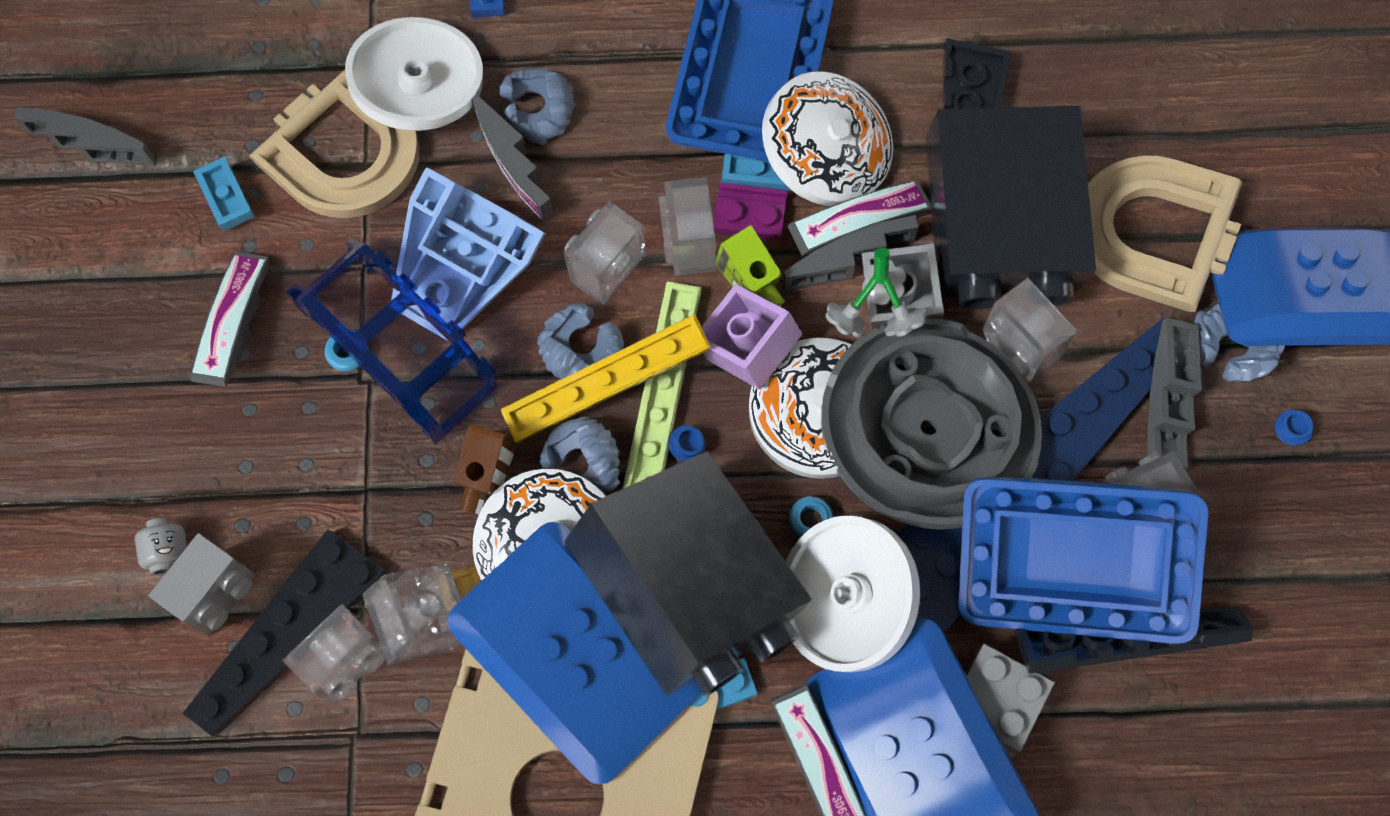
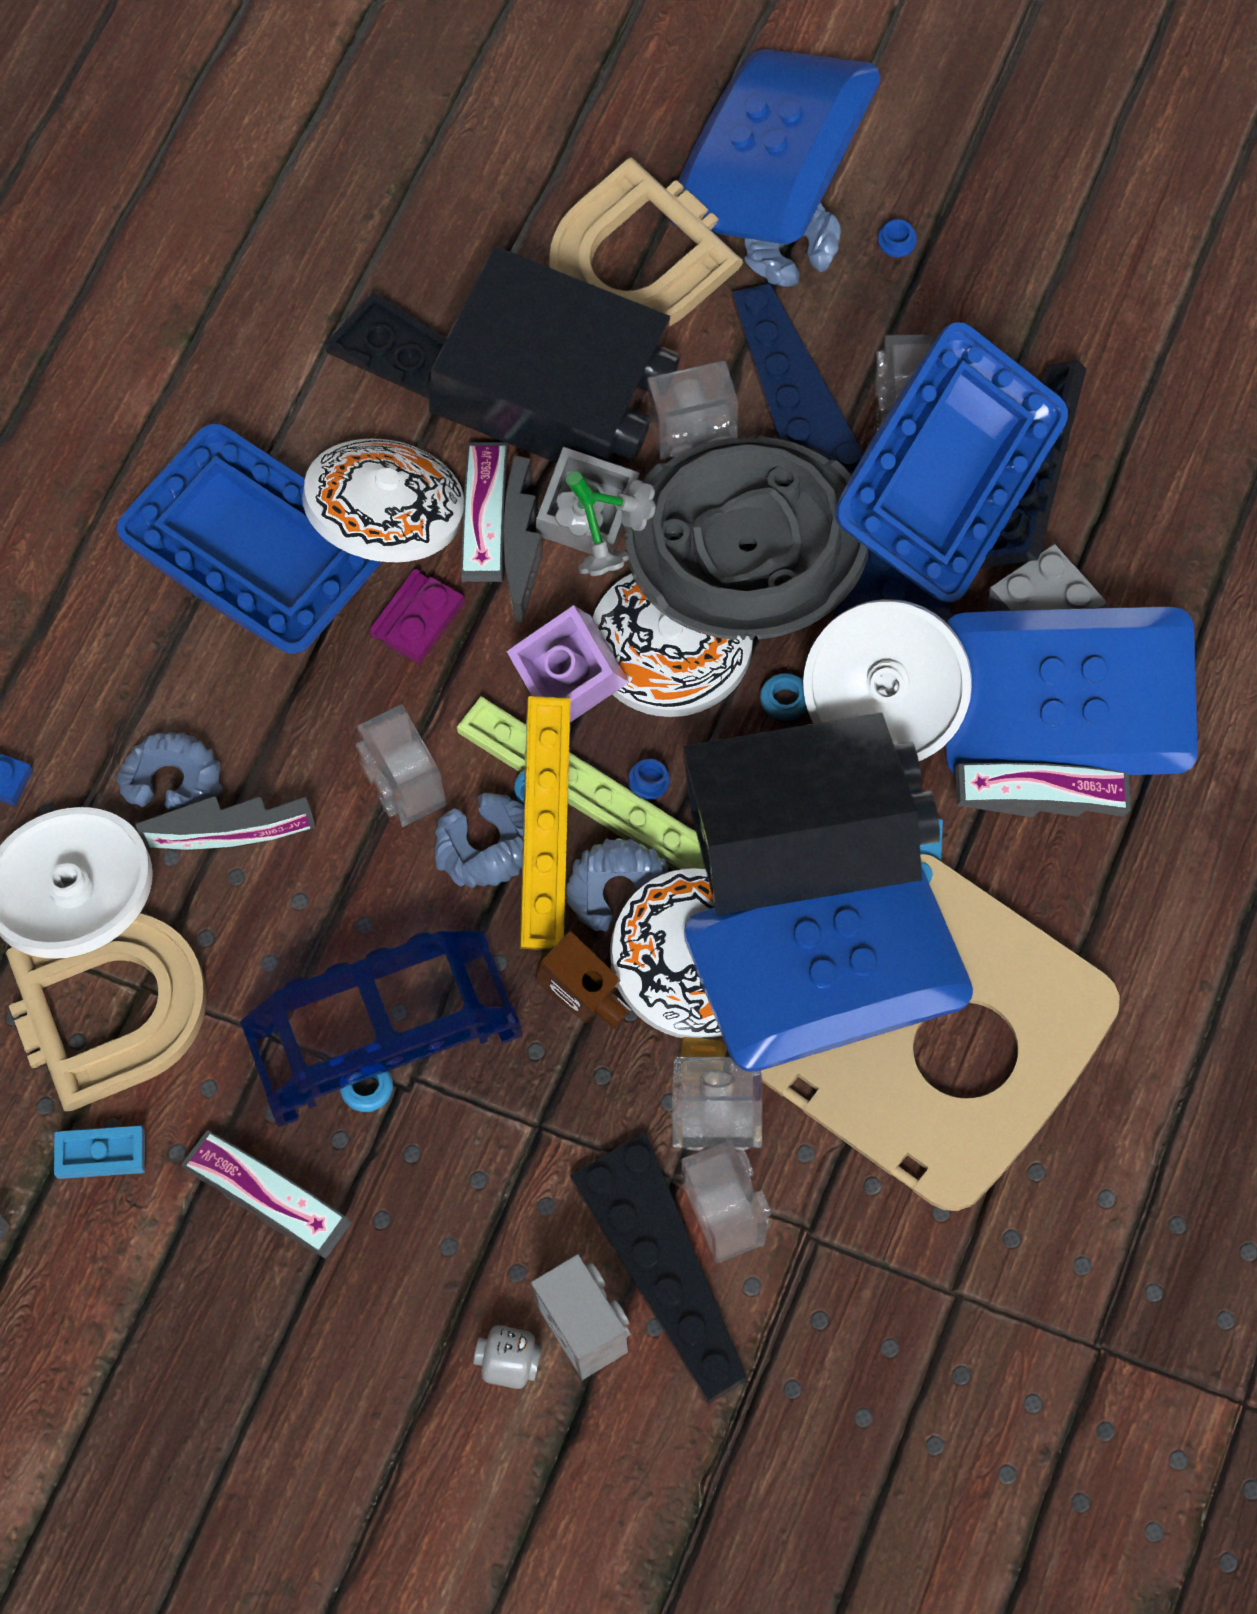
camera: 65 degrees left, 5 degrees down
(461, 249) = (316, 911): light blue wedge -> none
(688, 226) = (415, 671): clear brick -> none
(746, 257) = (485, 632): lime torso -> none
(751, 173) = (377, 592): dark azure plate -> none
(1172, 390) = (807, 314): dark grey slope -> none

